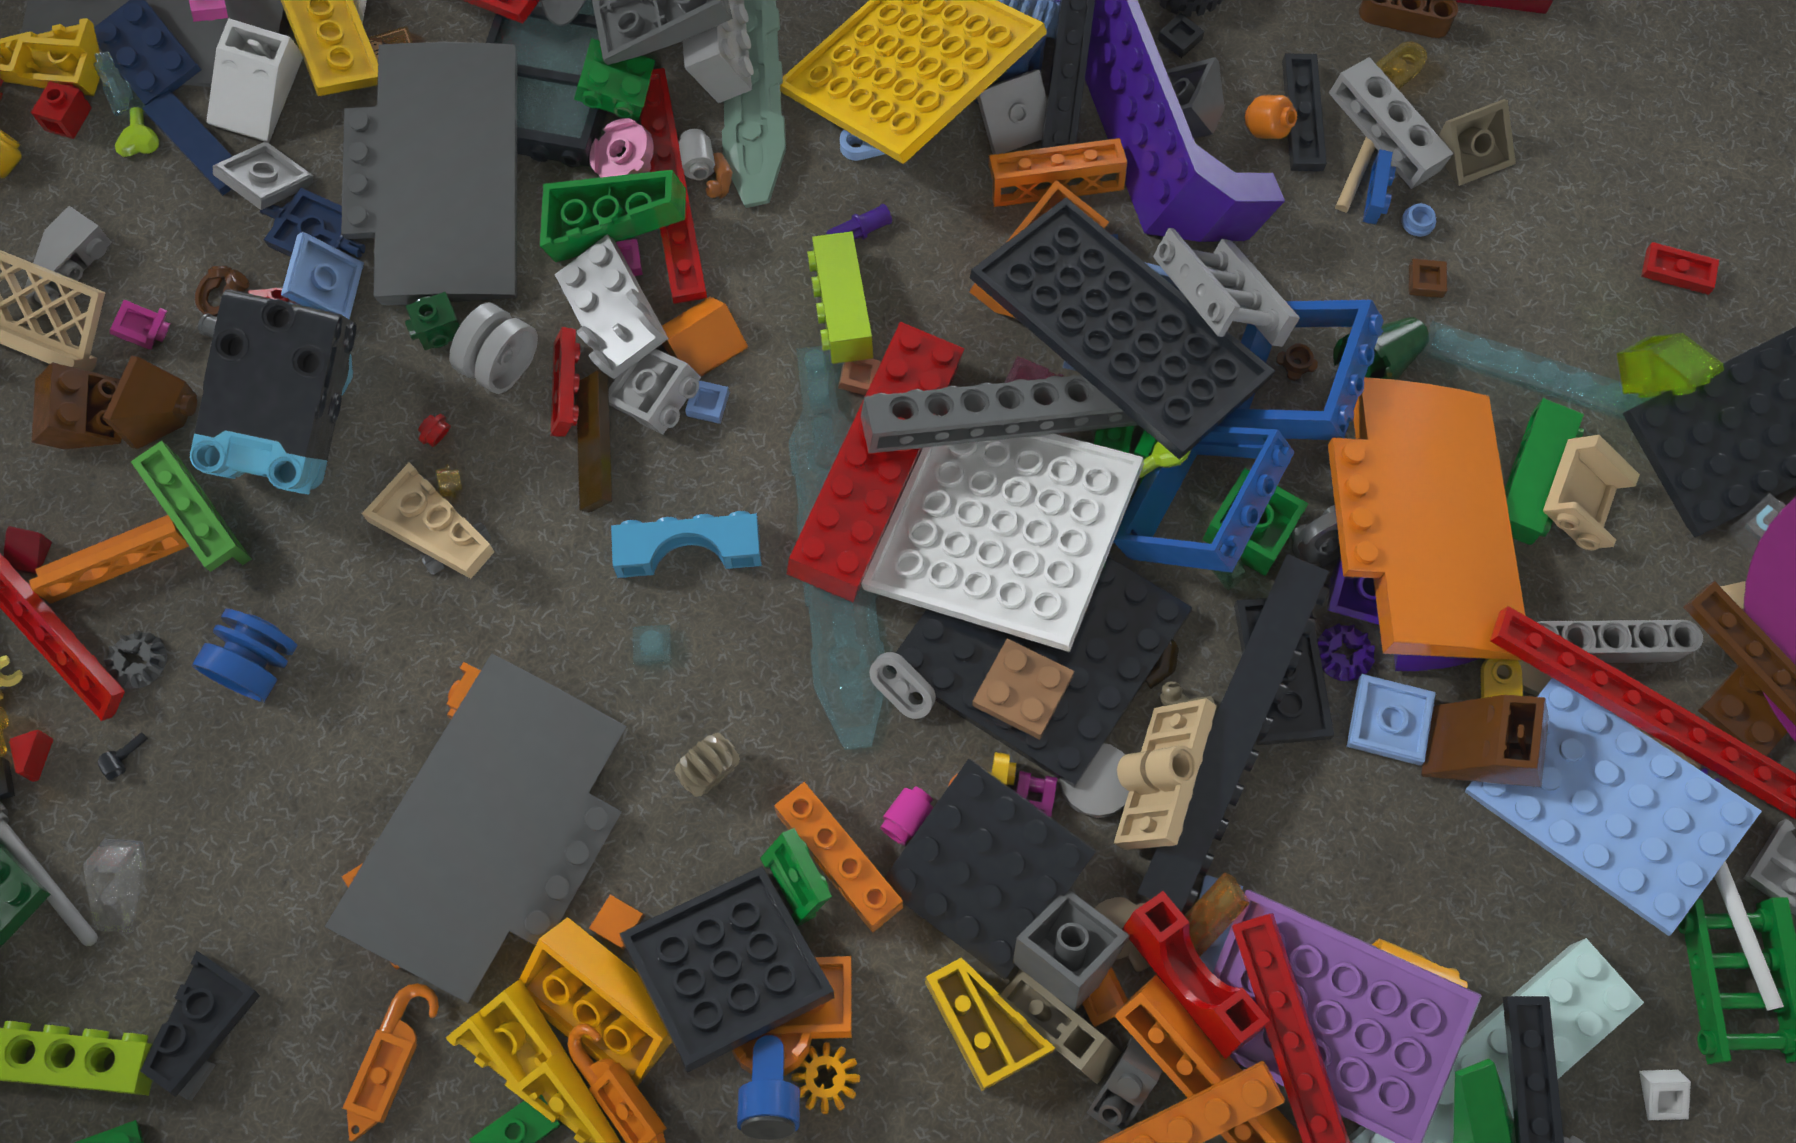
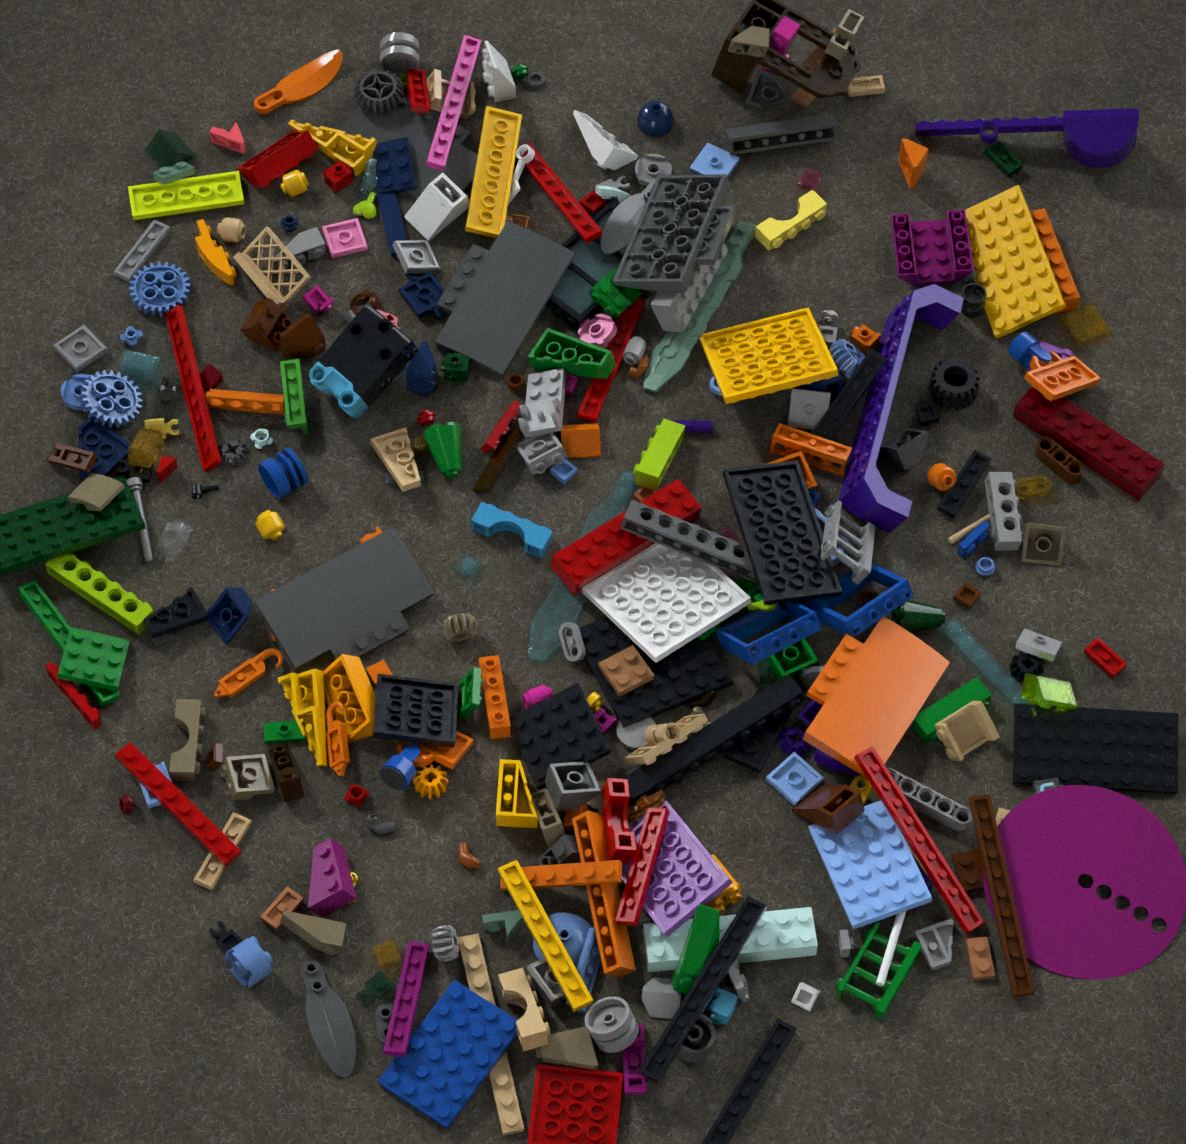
camera: 30 degrees right, 10 degrees down
(25, 228) = (289, 227): none -> dark blue plate
(128, 202) = (344, 238): none -> bright pink tile
(169, 600) = (261, 433): none -> light aqua plate
(274, 759) = (270, 525): none -> yellow head
(293, 962) = (230, 612): none -> dark blue slope
(322, 276) = (416, 319): light blue plate -> none
(384, 357) = (422, 372): none -> dark blue slope
(493, 347) = (476, 393): light grey wheel -> none
(496, 464) = (445, 447): none -> green cone
(539, 290) = (515, 378): none -> reddish brown plate
(1585, 299) = (1038, 645): none -> light grey plate
(1590, 343) = (1023, 660): none -> black gear
(1664, 964) = (845, 943): none -> light grey plate

